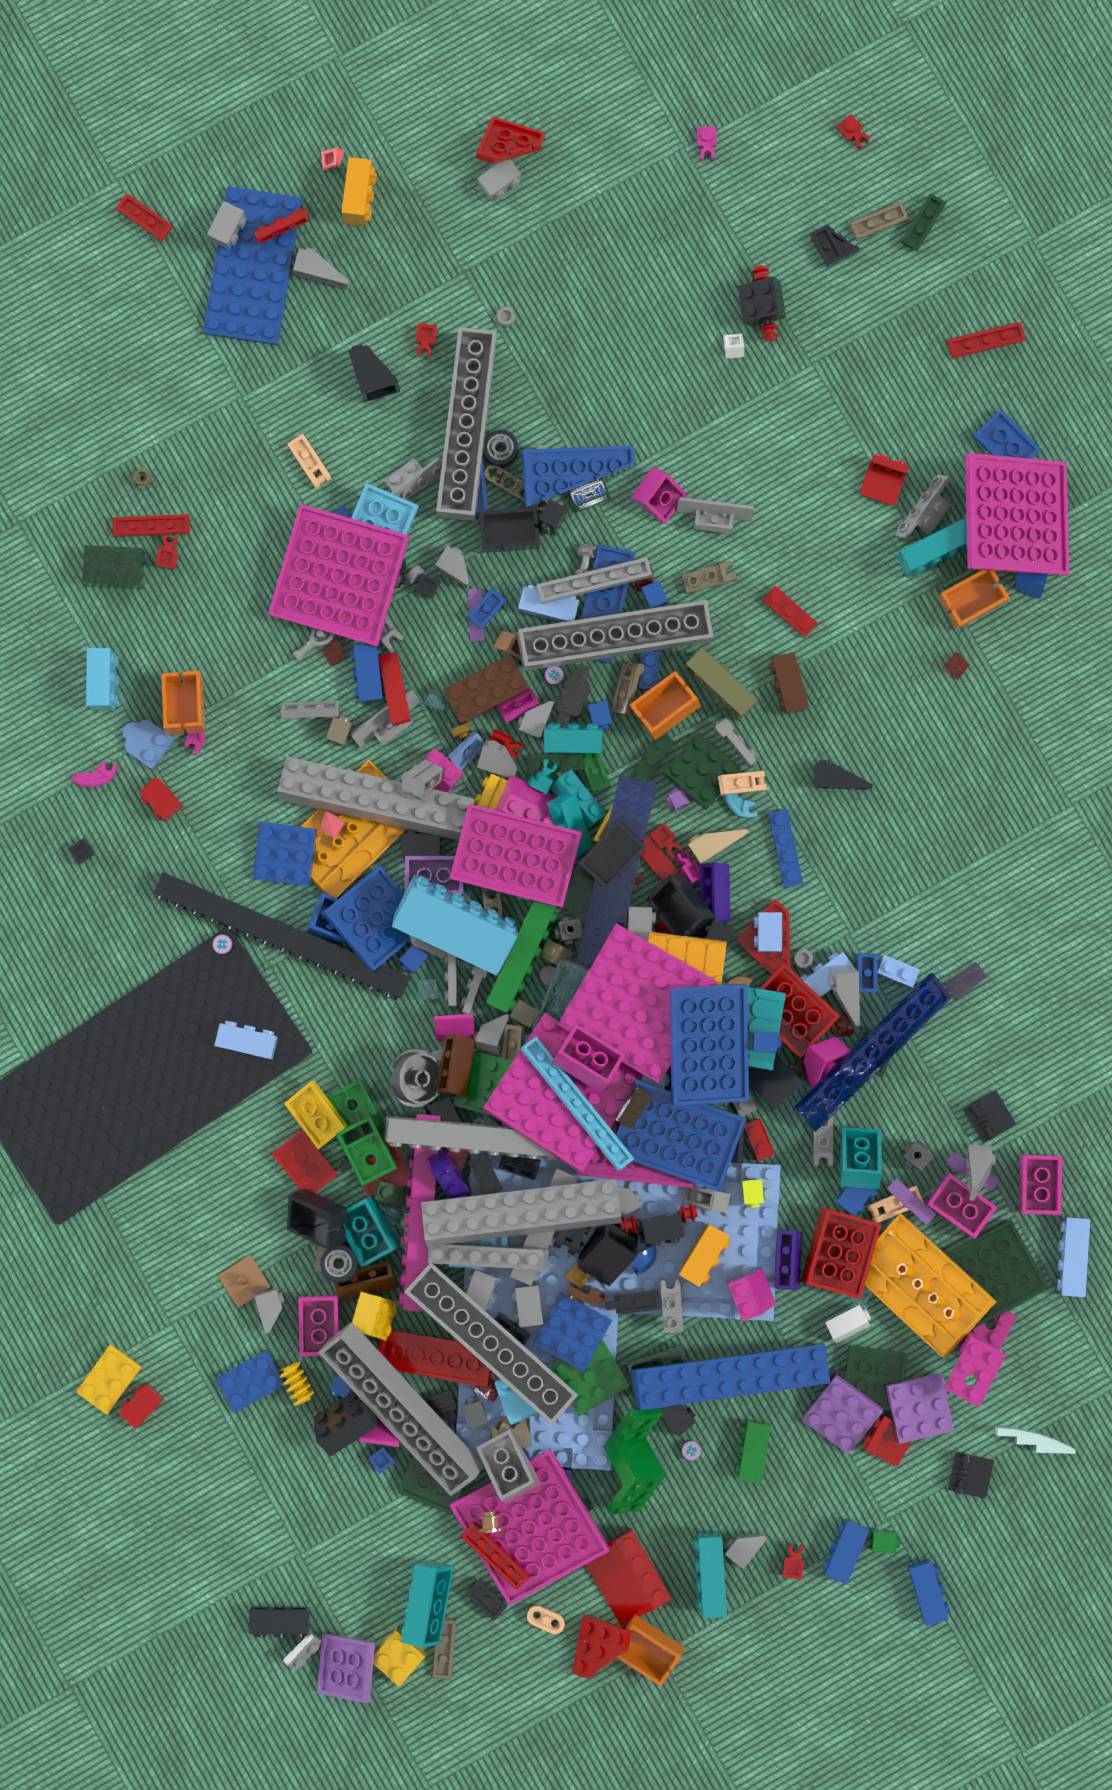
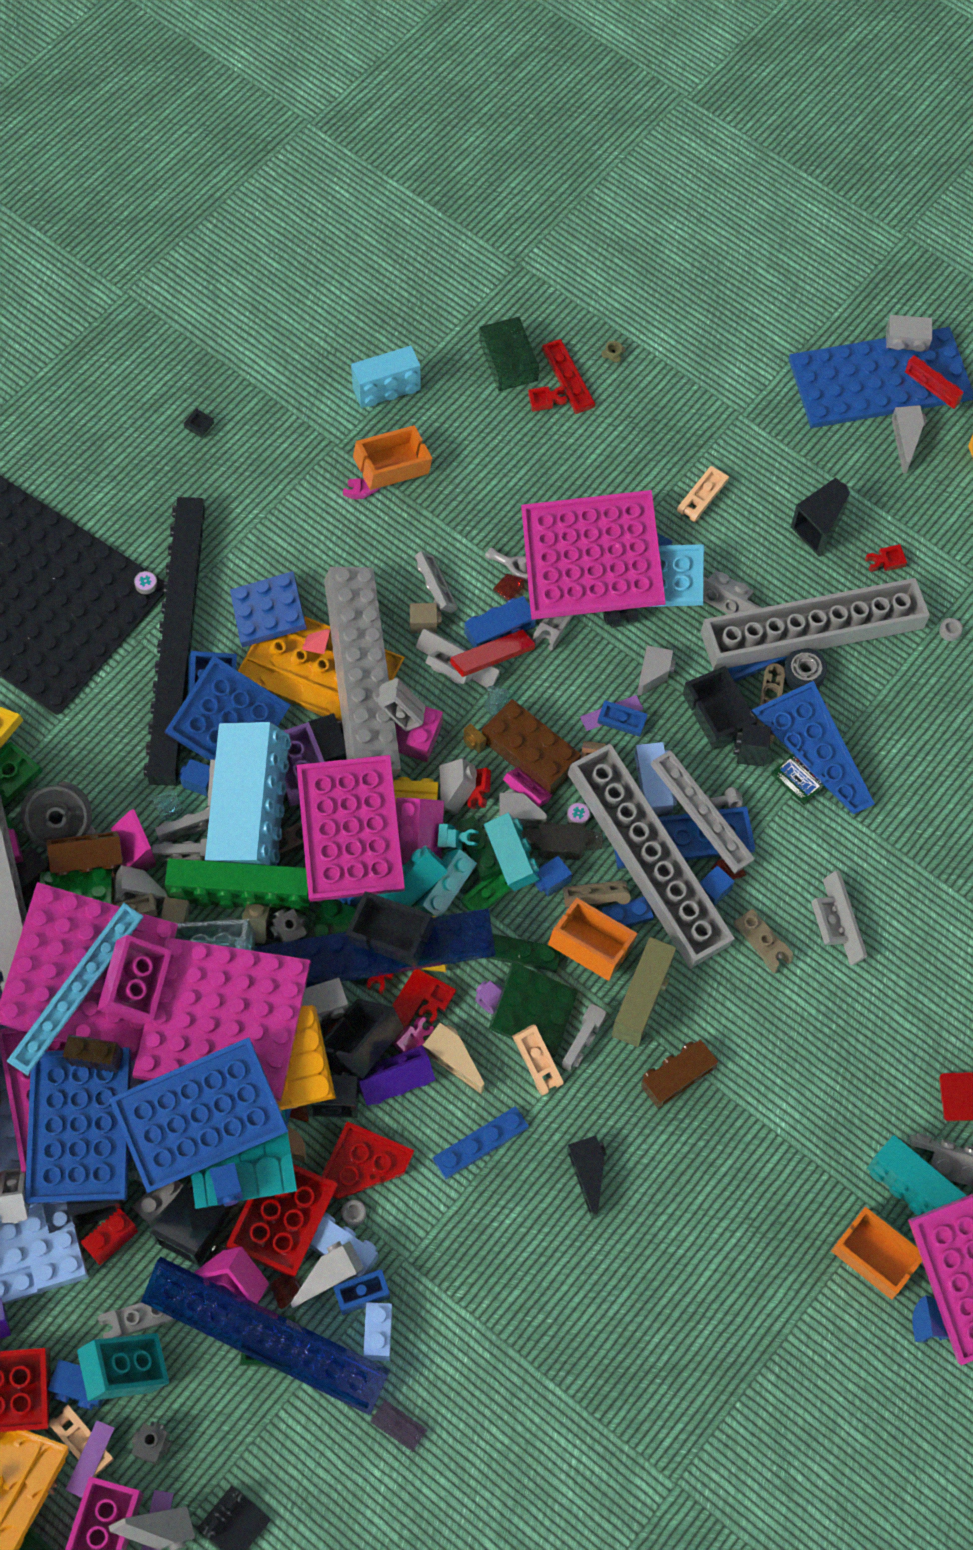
camera: 65 degrees right, 20 degrees down
(96, 778) = (283, 414): dark pink piece -> none
(144, 217) = (879, 266): red plate -> none
(146, 742) = (337, 445): medium blue plate -> none
(161, 799) = (282, 475): red brick -> none
(246, 1040) = (46, 638): light blue brick -> none
(414, 574) = (627, 633): light grey tile -> none
(427, 586) = (620, 651): black plate -> none
(467, 750) = (451, 749): medium blue plate -> none
(658, 494) = (831, 850): dark pink slope -> none
(739, 806) = (510, 1071): medium azure piece -> none
(752, 1192) = (37, 1247): neon yellow brick -> none
(768, 932) = (368, 1153): light blue brick -> none
(789, 611) = (764, 1045): red plate -> none
(956, 665) = (787, 1266): clear red slope -> none

